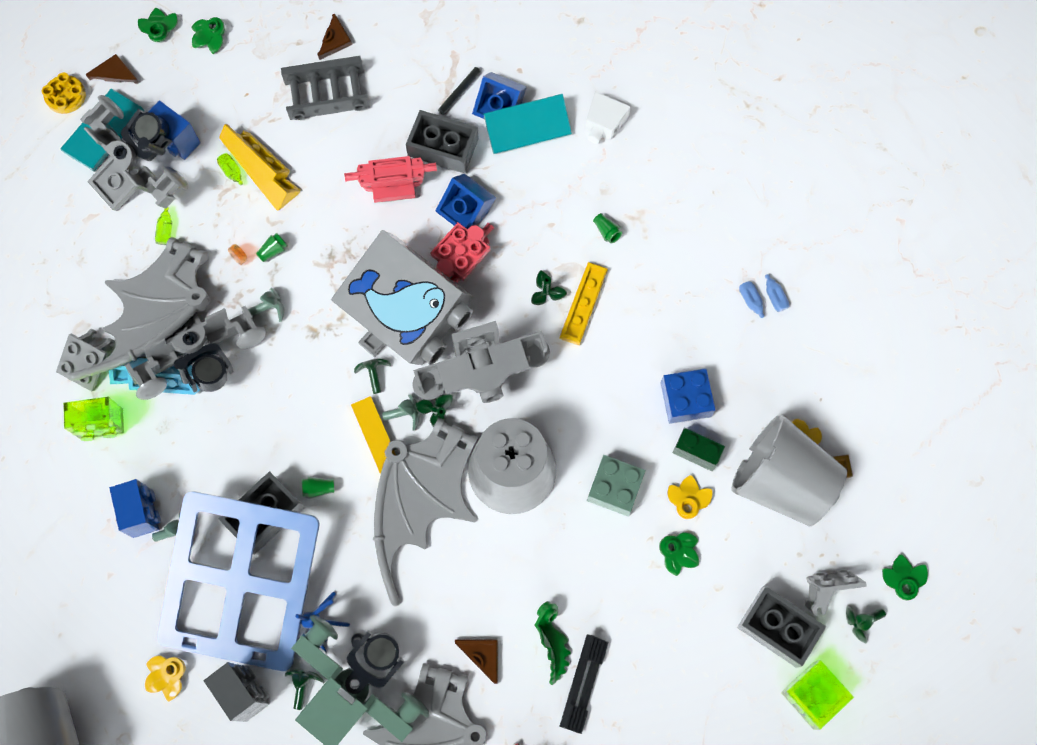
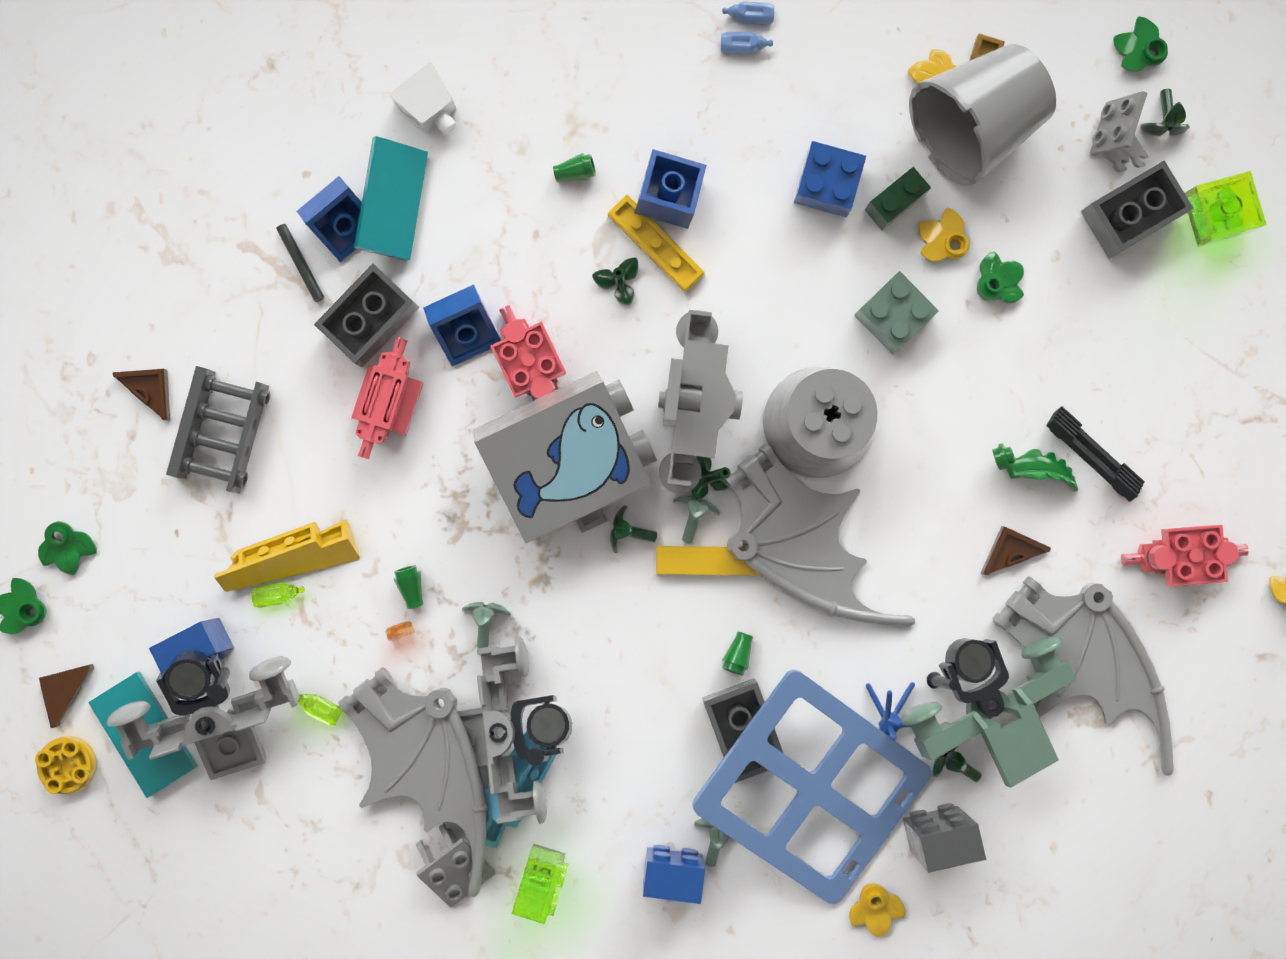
camera: 60 degrees left, 15 degrees up
(624, 291) = (670, 189): none -> blue brick

